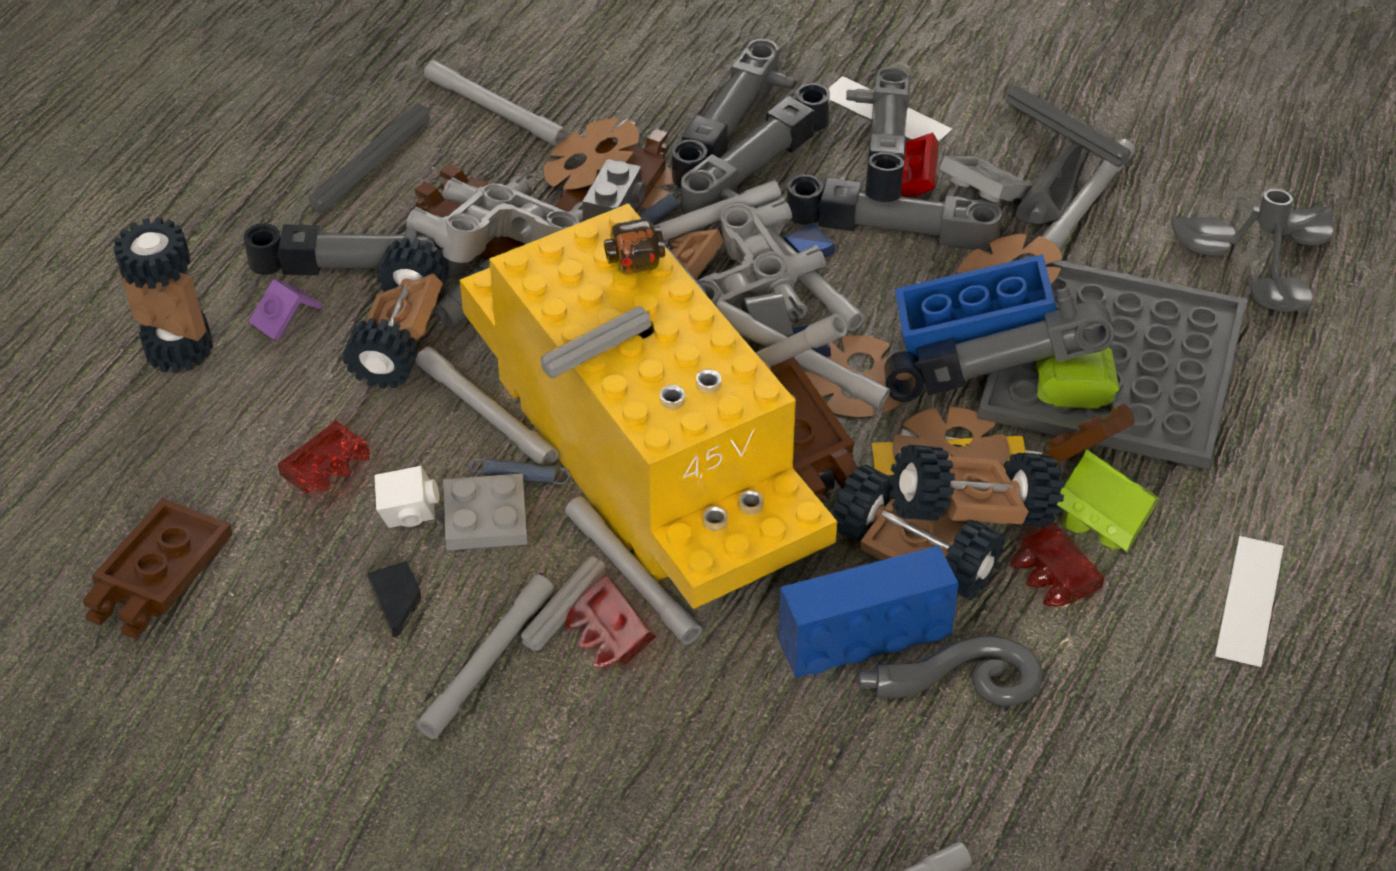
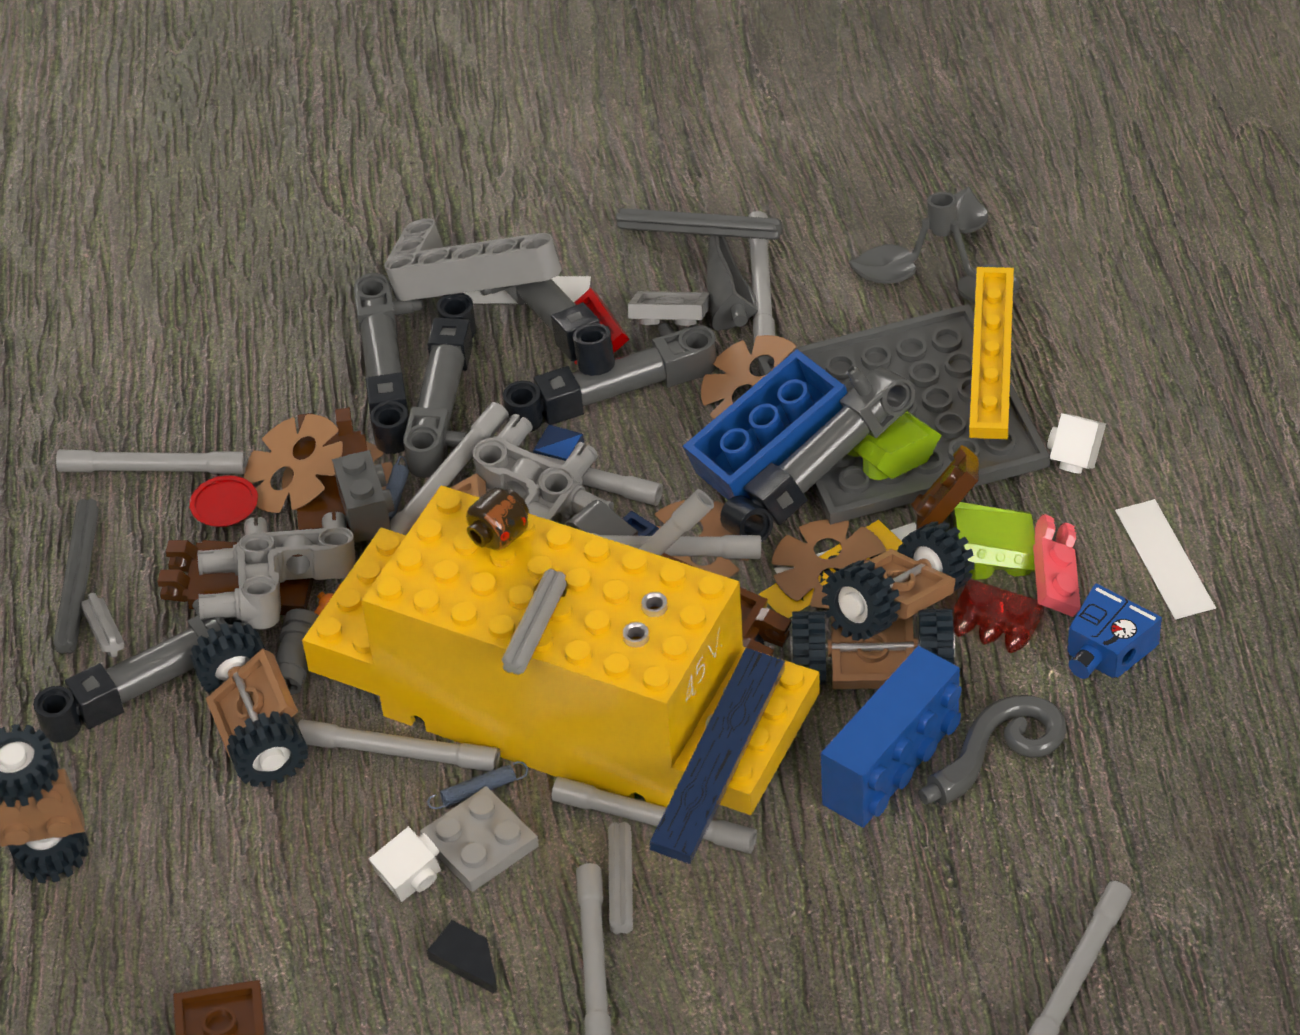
camera: 30 degrees left, 0 degrees up
(278, 308) = (123, 762): medium lavender bracket -> none
(323, 456) = (292, 871): clear red plate -> none
(347, 200) = (102, 625): none -> light grey axle
(518, 156) = (223, 501): none -> red piece
(610, 622) = (699, 878): clear red plate -> none
(686, 539) = (717, 756): none -> dark blue tile
(825, 57) = (426, 269): none -> light grey beam
(1137, 635) = (1110, 634): none -> blue torso
(1138, 555) = (1056, 566): none -> coral hinge
(1226, 347) = (991, 353): none -> yellow plate
(1243, 458) = (1075, 442): none -> white brick

